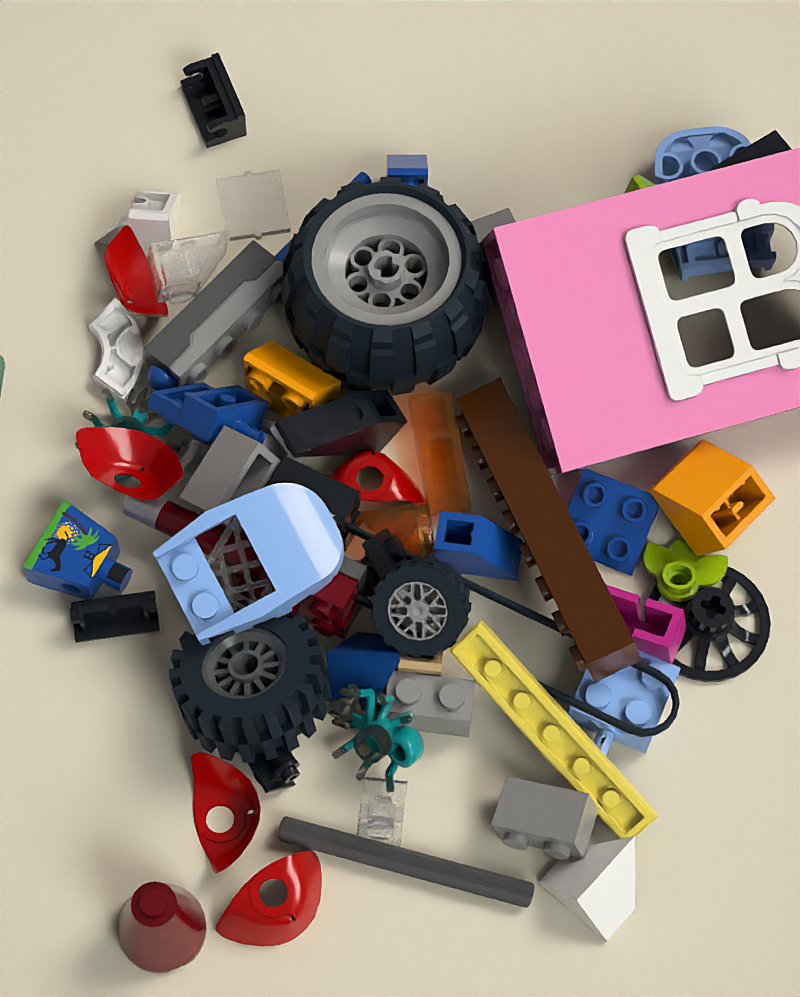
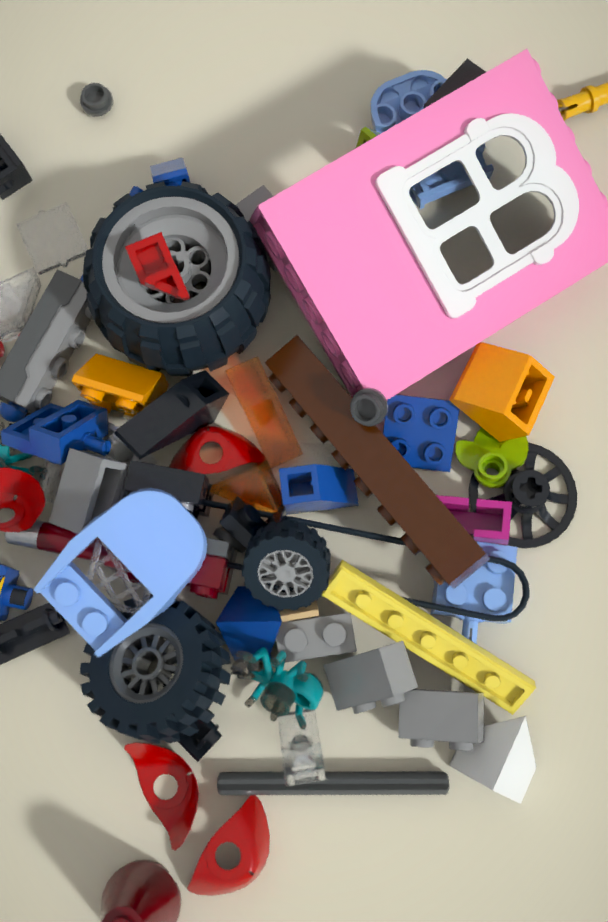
camera: 10 degrees left, 10 degrees up
(344, 64) = (96, 99): none -> dark grey plate
(370, 262) = (156, 266): none -> red slope
(478, 753) = (371, 677): none -> light grey piece
(555, 468) = (369, 407): none -> dark grey plate

